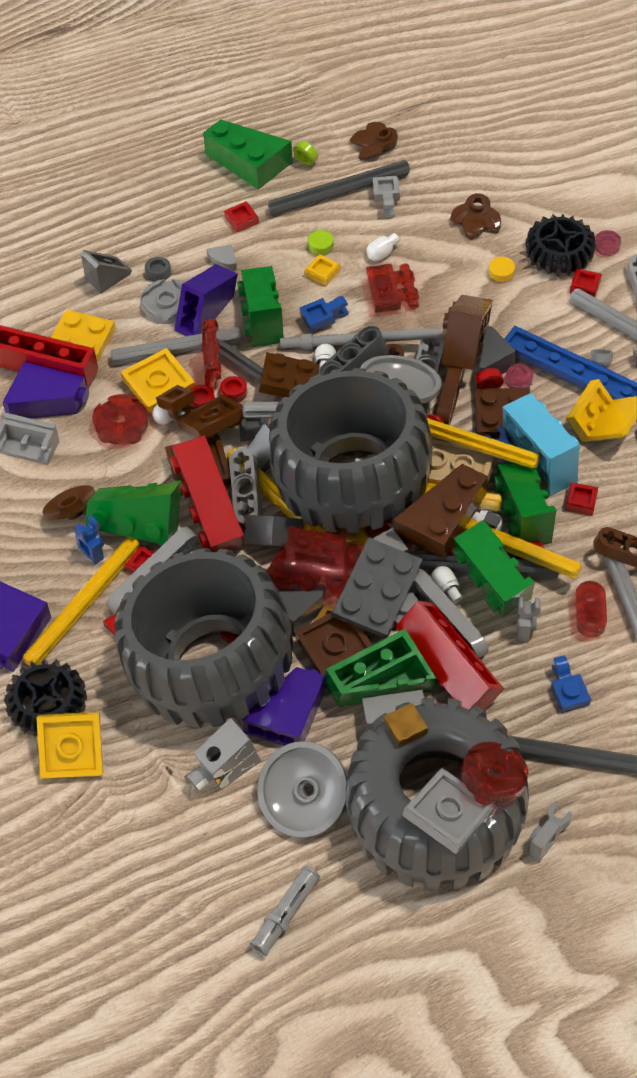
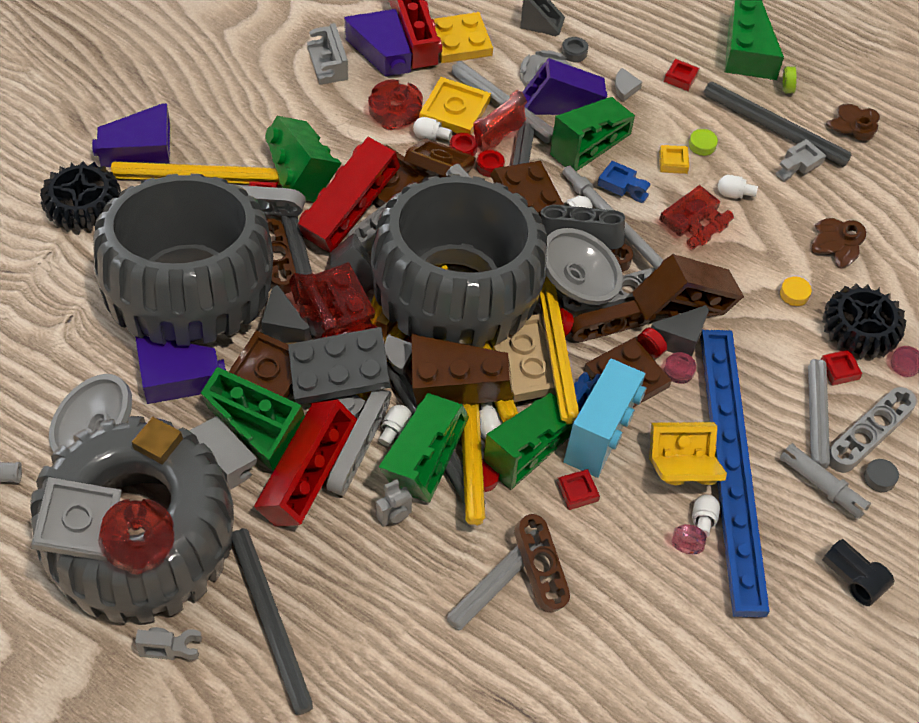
camera: 50 degrees right, 0 degrees up
(68, 503) = (272, 109): reddish brown dish -> none
(70, 745) = (39, 233): yellow plate -> none
(89, 541) = (252, 145): blue plate -> none
(176, 399) = (433, 122): reddish brown tile -> none
(224, 757) = (93, 344): light grey torso -> none
(492, 519) = (485, 420): dark grey piece -> none
(568, 689) = (346, 585): blue plate -> none
(590, 611) = (448, 559): clear red plate -> none
(602, 357) = (757, 422): light grey hinge -> none

